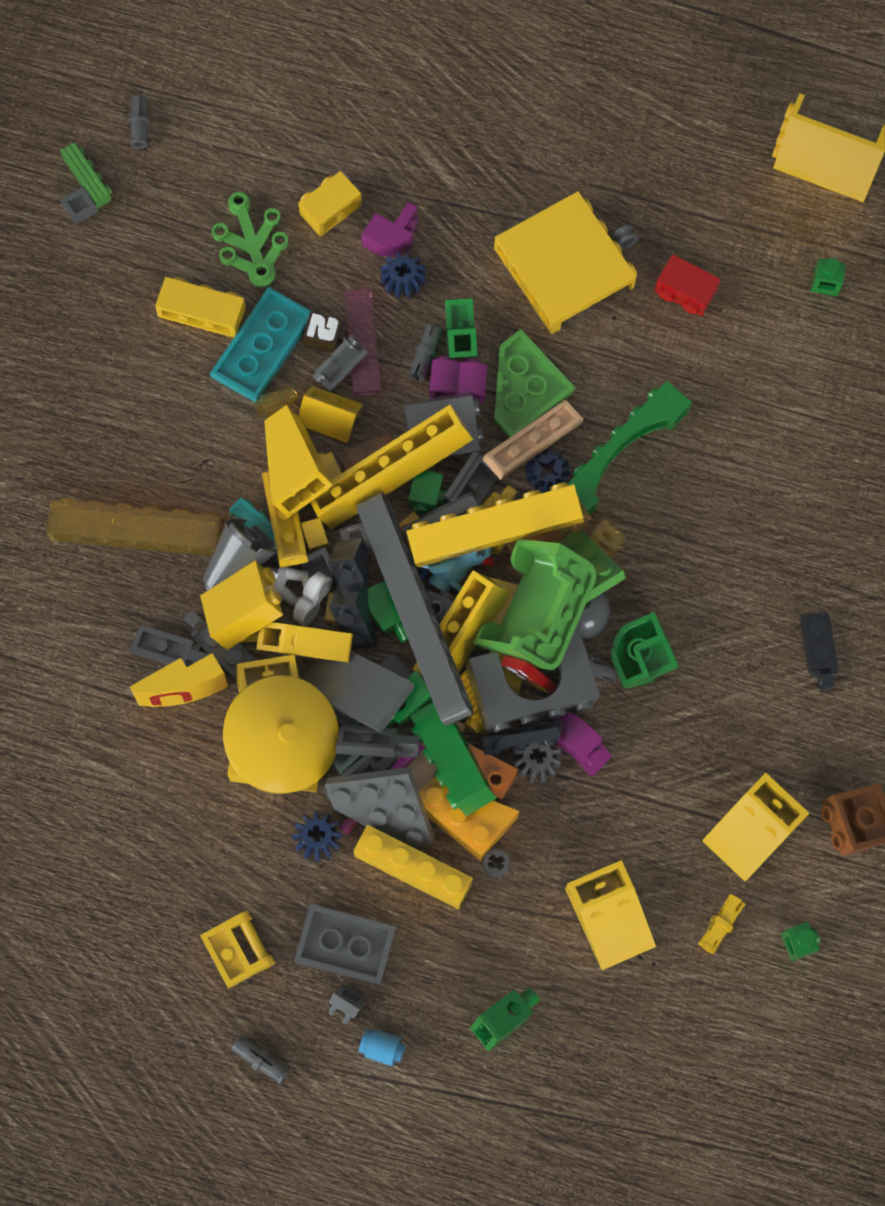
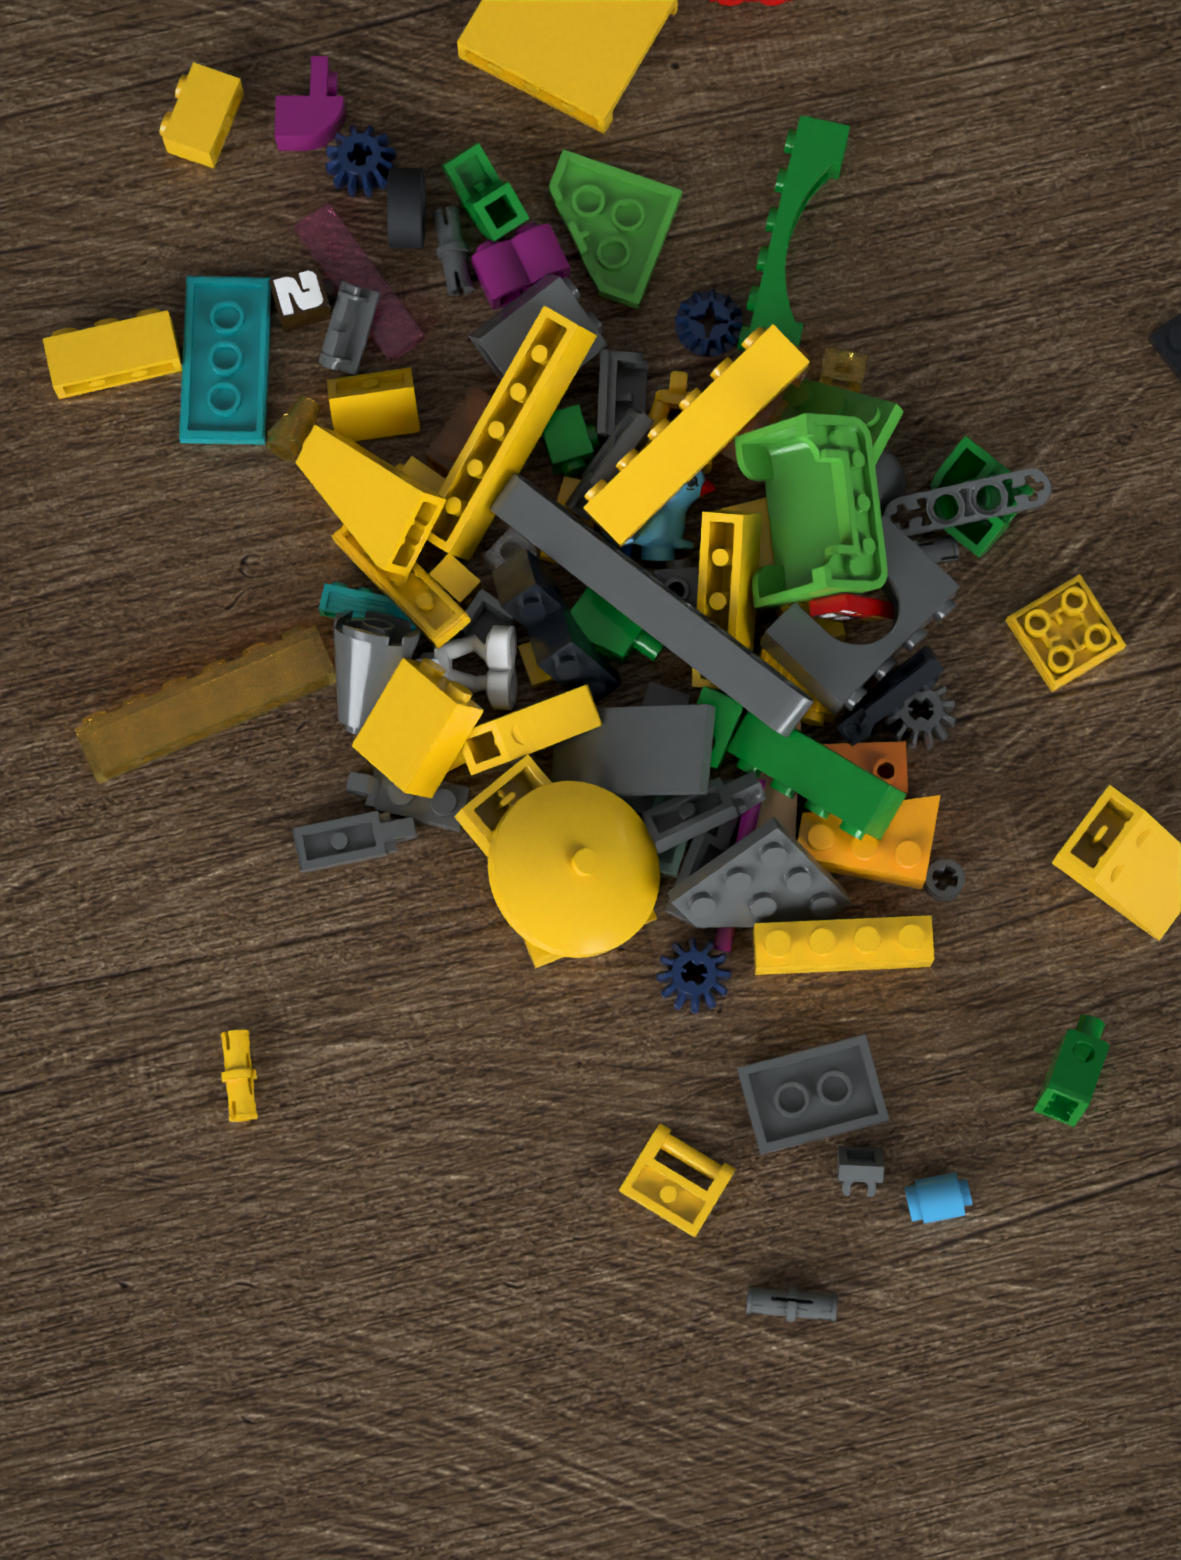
camera: 25 degrees left, 5 degrees up
(26, 747) = (239, 1075): none -> yellow pin
(180, 684) = (398, 875): yellow slope -> none
(251, 244) = (127, 228): bright green plant -> none
(411, 313) = (406, 207): none -> black tyre
(533, 439) = (667, 291): light nougat tile -> none
(582, 744) = (968, 661): magenta brick -> none
(632, 655) = (966, 496): none -> dark grey beam
(651, 760) = (1065, 633): none -> yellow tile

